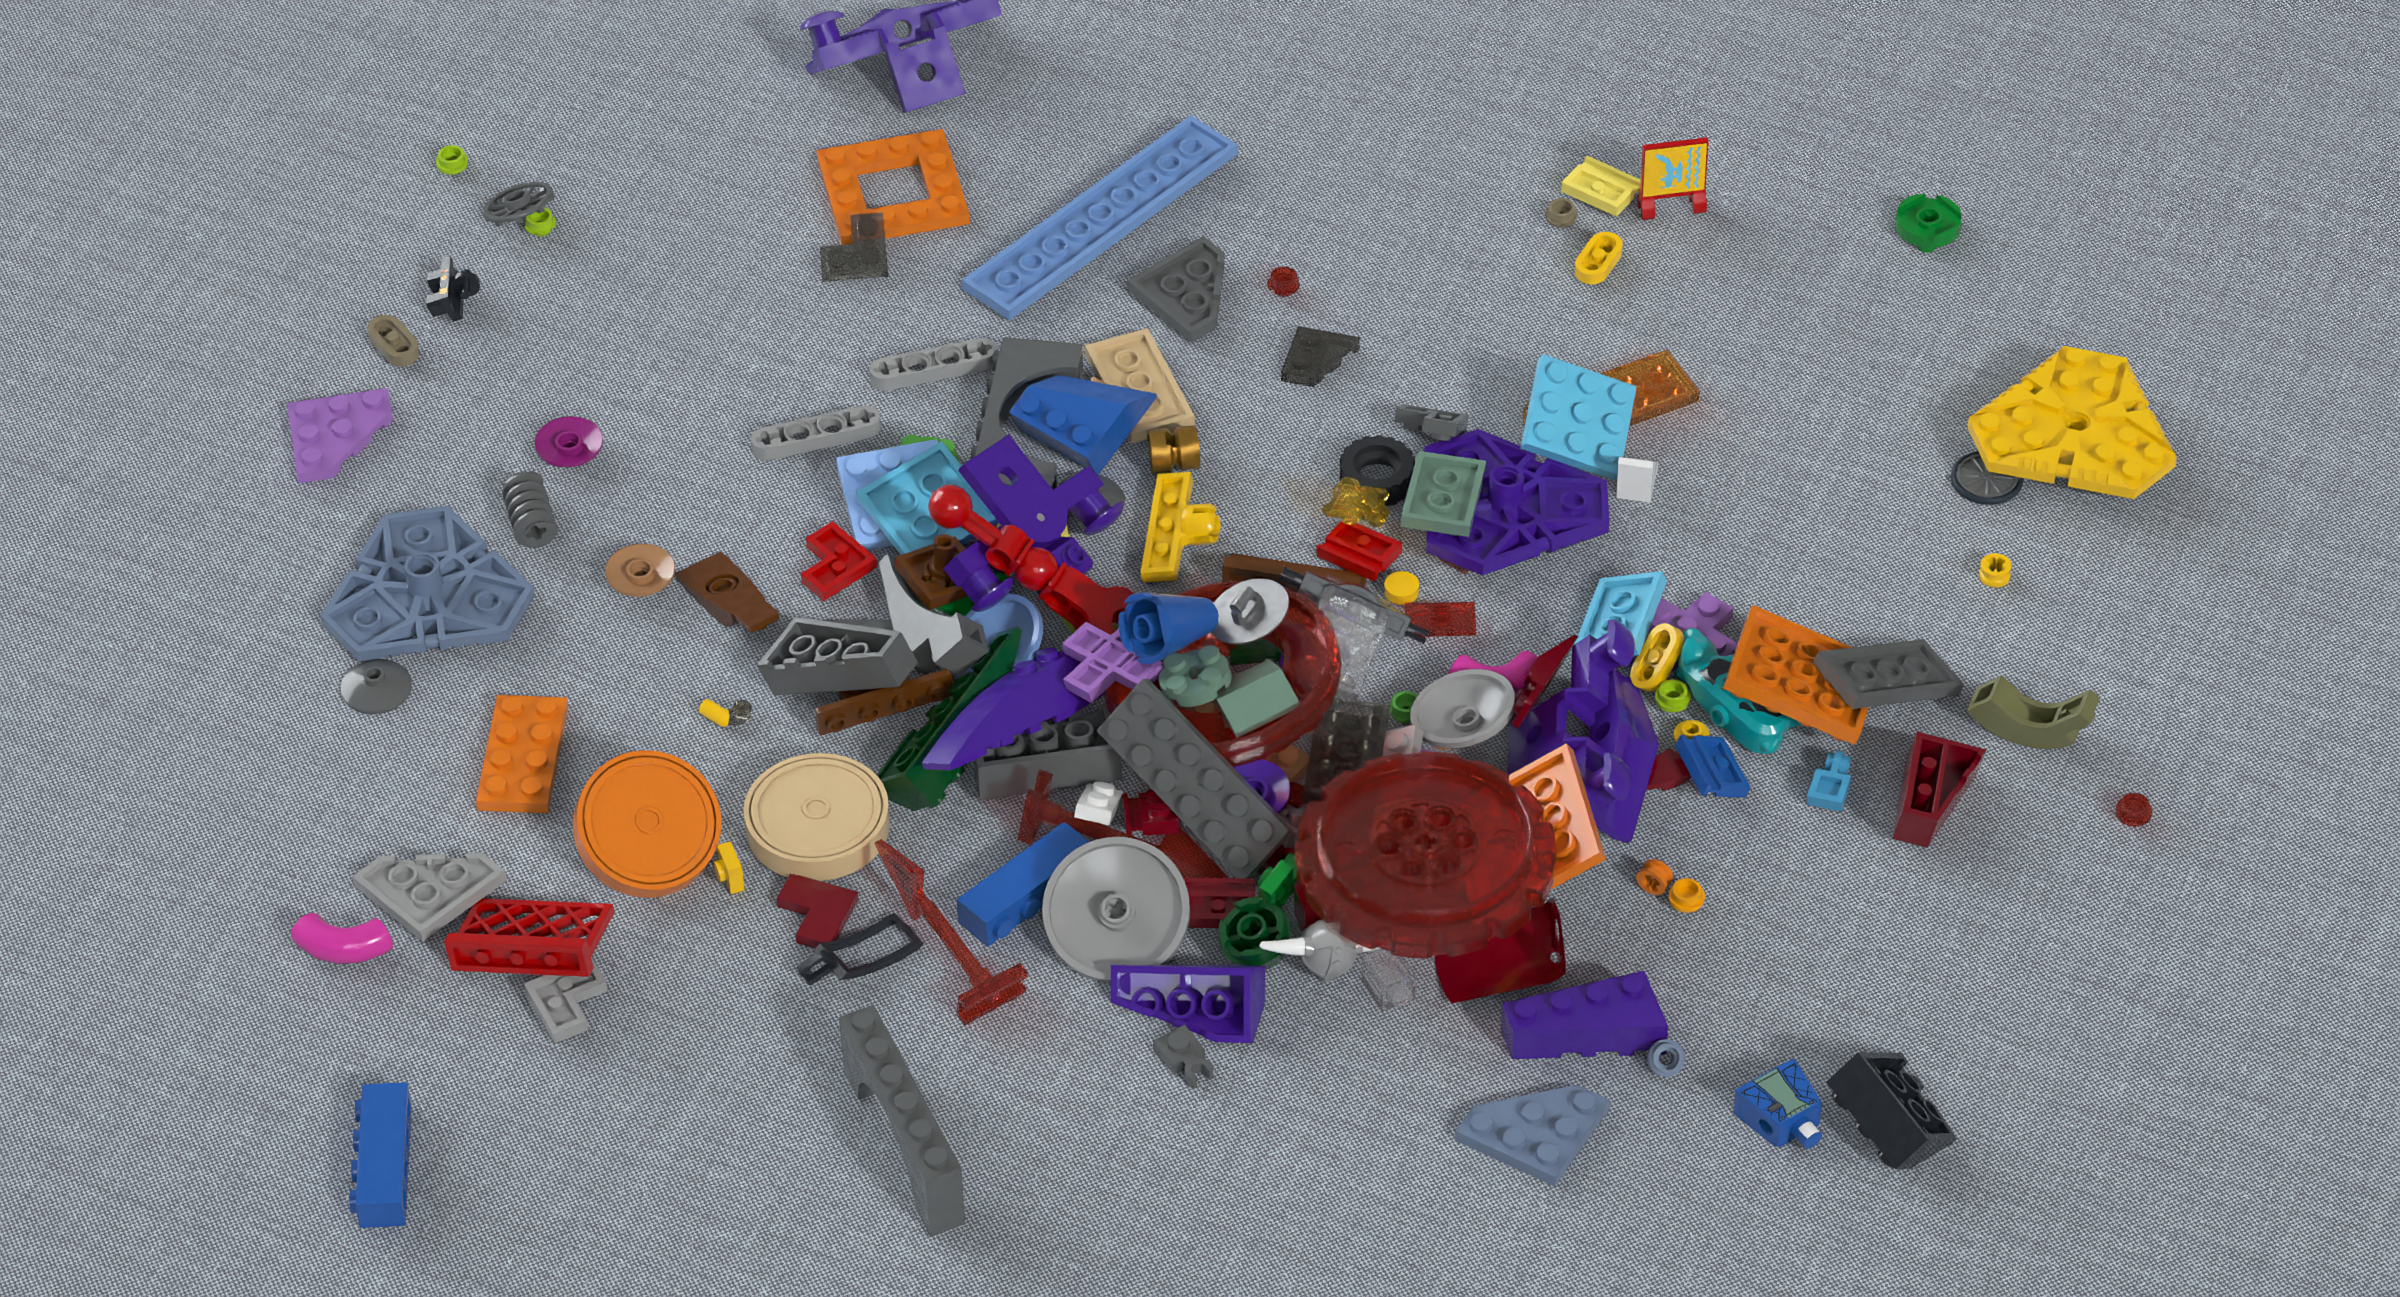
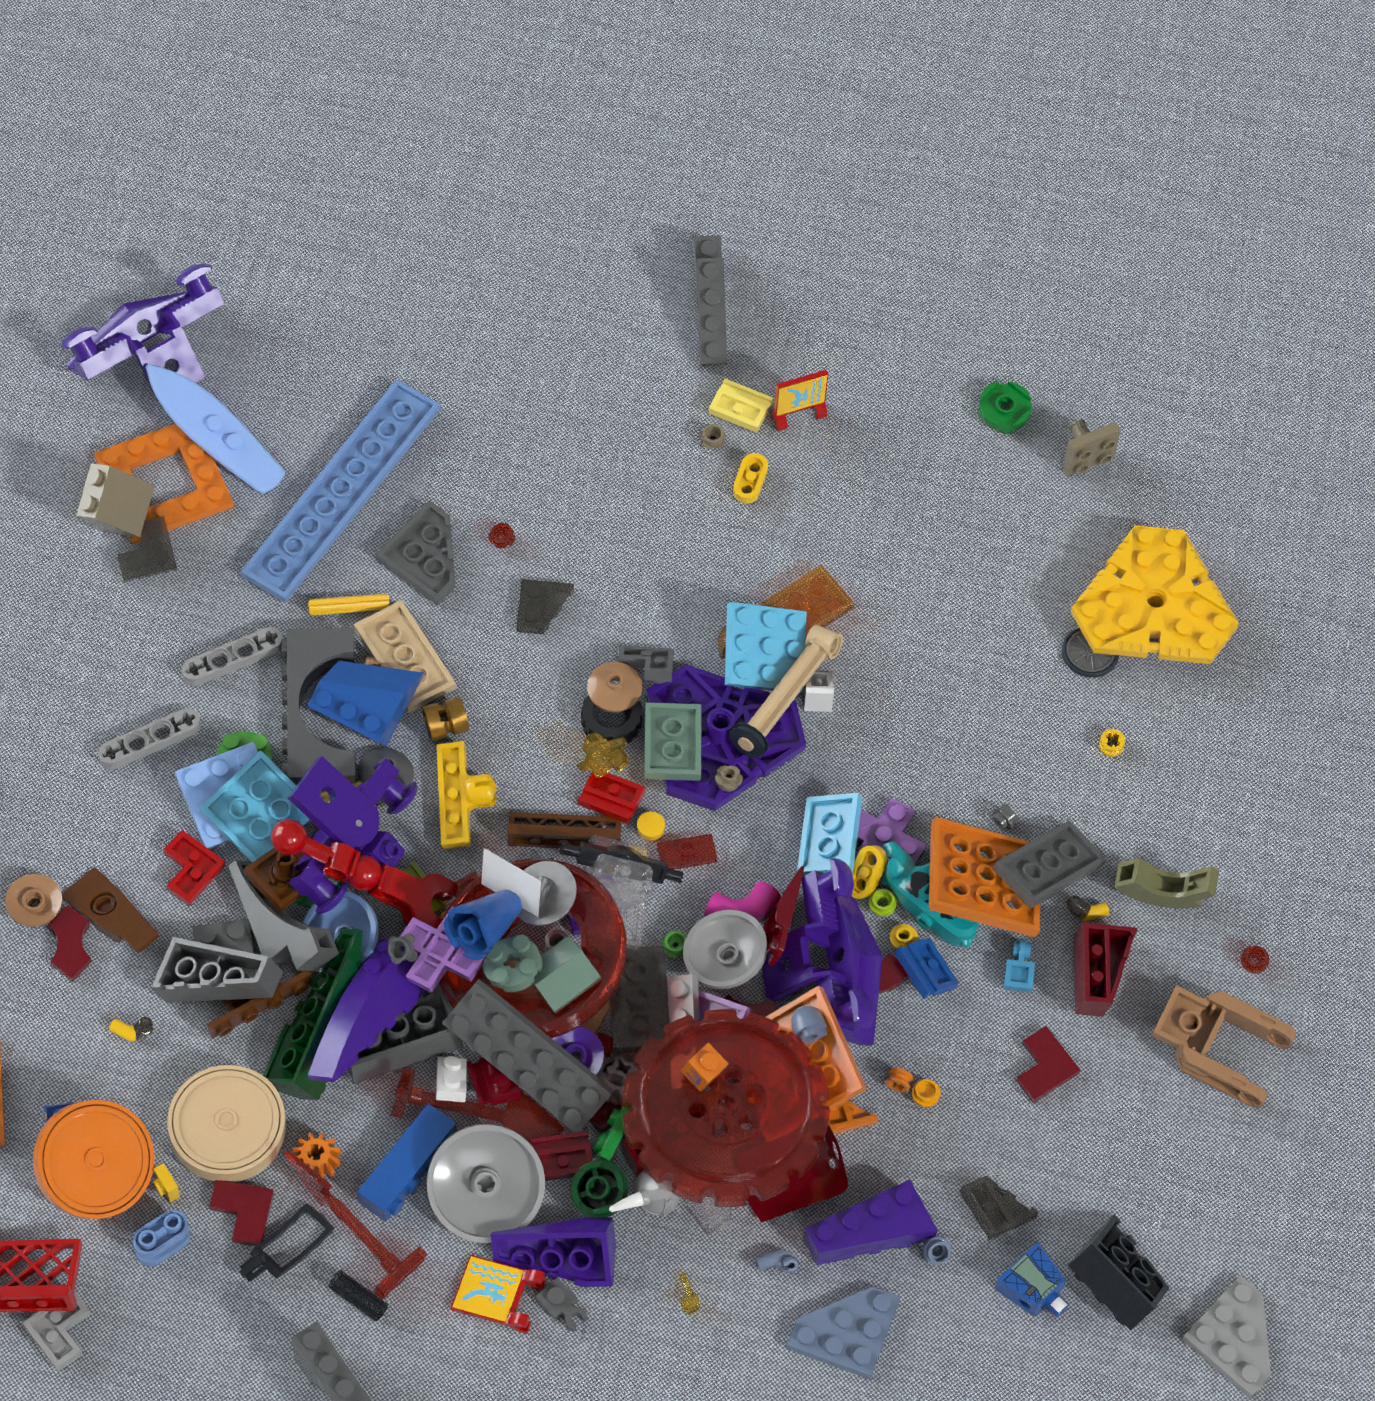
camera: 15 degrees left, 15 degrees up
(675, 610) = (70, 955): none -> dark red tile
(710, 920) = (161, 1238): none -> medium blue brick
(825, 182) = (114, 501): none -> dark tan slope
(927, 856) = (318, 1146): none -> orange gear
(936, 1012) = (355, 1291): none -> black piece
(964, 139) = (215, 429): none -> light blue piece
(1058, 645) = (395, 952): none -> dark grey plate
(1081, 328) = (348, 604): none -> yellow axle
(1106, 1032) = (494, 1292): none -> flag
(1208, 581) = (502, 875): none -> white sticker
(1343, 1073) = (691, 1301): none -> clear yellow hand
(1385, 438) = (614, 697): none -> medium nougat dish
(1403, 793) = (704, 1067): none -> orange brick
(1463, 1042) = (778, 1258): none -> sand blue arm
(1504, 538) = (725, 783): none -> dark tan plate
(1540, 497) = (750, 737): none -> tan piece
(1546, 782) = (808, 1024): none -> sand blue piece
(1582, 909) = (849, 1117): none -> orange tile
(1586, 76) = (710, 299): none -> dark grey arch
(1750, 1024) = (995, 1207): none -> clear smoke wing
(1844, 628) = (1004, 817): none -> dark grey plate
(1851, 889) = (1052, 1068): none -> dark red tile
(1918, 724) = (1084, 910): none -> arm
(2025, 266) = (1090, 447): none -> dark tan plate
(2030, 1200) = (1235, 1337): none -> light grey plate
(2045, 861) = (1192, 1025): none -> medium nougat plate

